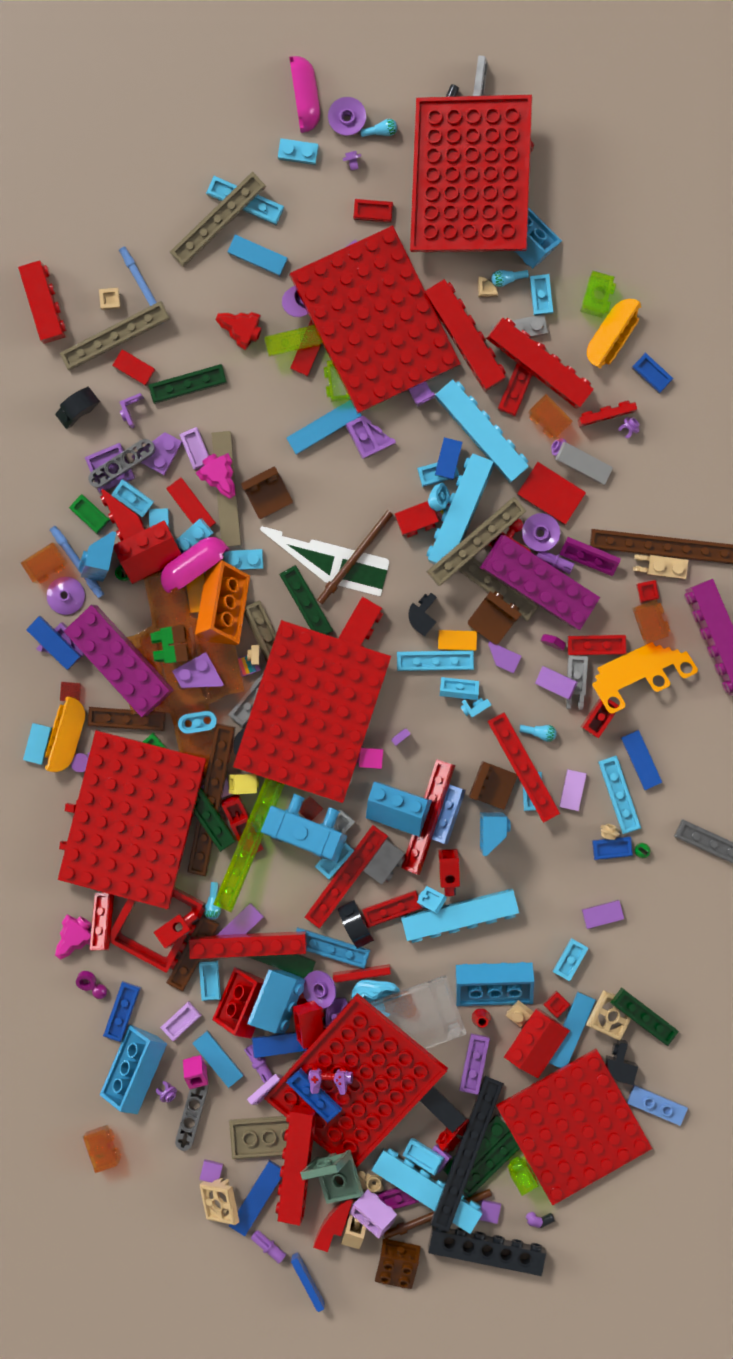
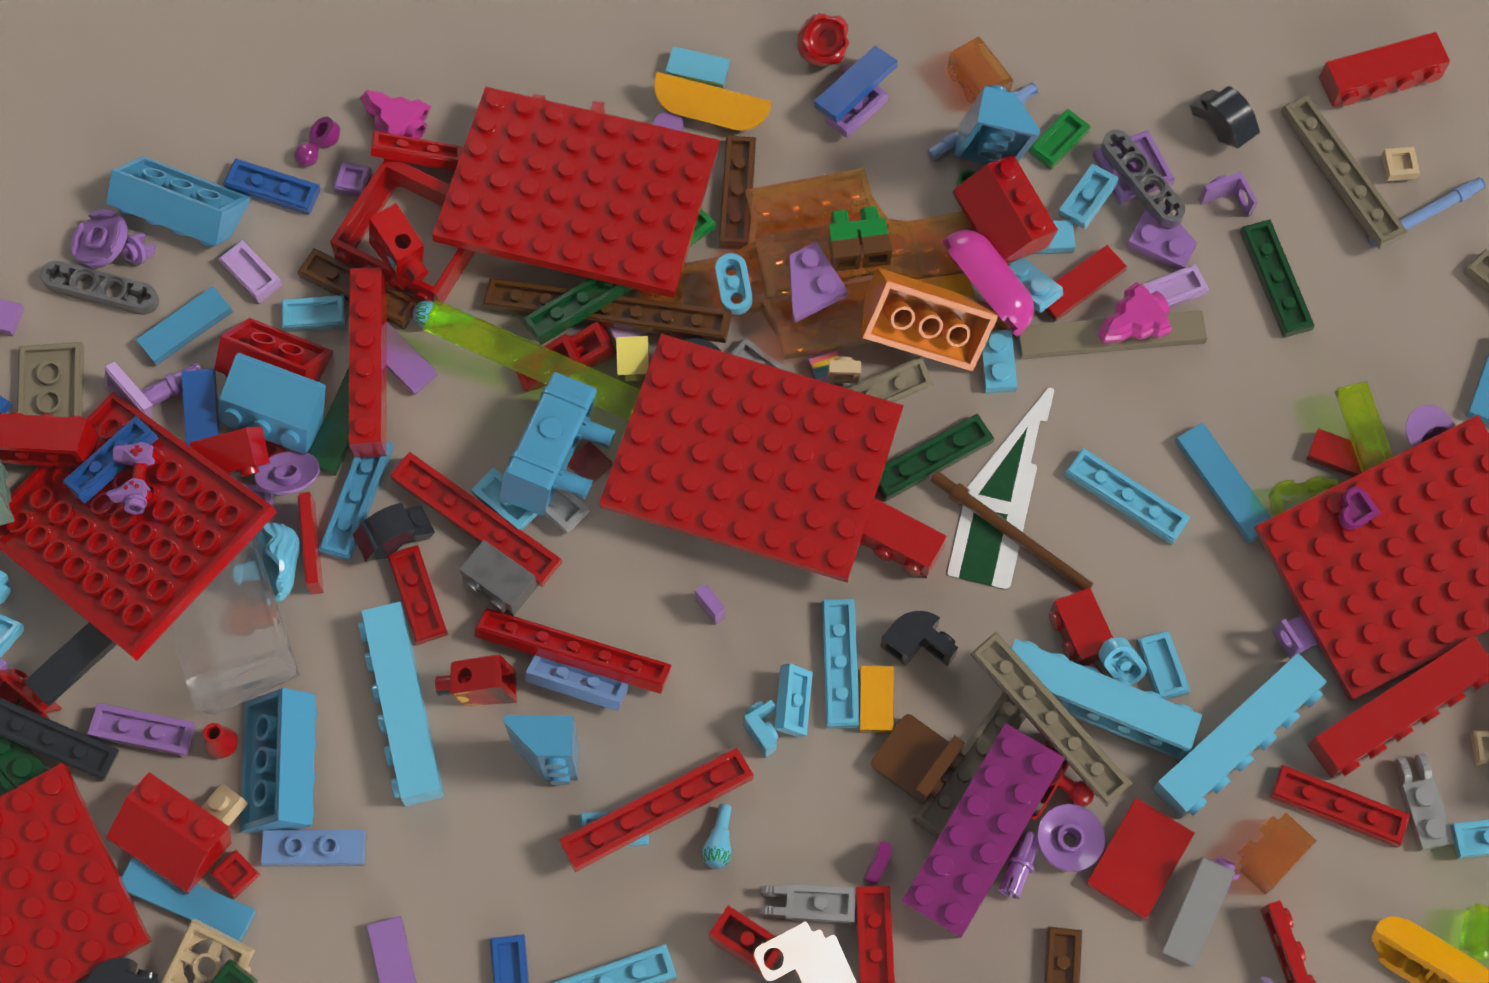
camera: 85 degrees right, 20 degrees down
(21, 662) = (823, 39): none -> red hair
(70, 689) = (781, 113): clear red tile -> none
(74, 599) = (929, 118): medium lavender dish -> none
(102, 1148) = (56, 155): clear orange brick -> none
(117, 961) = (352, 179): none -> medium lavender tile
(118, 660) = (830, 166): magenta brick -> none
(125, 519) = (1061, 177): red slope -> none
(133, 367) = (1295, 200): red tile -> none
(161, 1116) = (99, 239): none -> medium lavender tile
(195, 1072) = (165, 286): dark pink brick -> none
(241, 327) = (1376, 355): red rock -> none
(267, 492) = (1112, 392): reddish brown bracket -> none
(331, 486) = (1127, 496): none -> medium azure tile
(351, 352) = (1356, 509): none -> magenta tile
(367, 437) = (1214, 551): medium lavender wing -> none
(370, 758) = (674, 555): dark pink brick -> none
(397, 808) = (589, 597): dark azure slope -> none
(431, 900) = (430, 650): medium azure bracket -> none
(448, 458) = (1189, 679): blue tile -> none
(493, 785) = (626, 756): reddish brown bracket -> none
(504, 658) = (847, 779): medium lavender tile -> none
(540, 363) = (1369, 831): red brick -> none
(542, 960) = (313, 848): none -> medium blue plate
(556, 682) = (806, 865): medium lavender tile -> none
(570, 959) = (313, 895): medium azure plate -> none
(572, 790) = (615, 899): lavender tile -> none
(590, 556) = (1032, 925): magenta plate -> none
(609, 831) = (540, 963): tan plate -> none

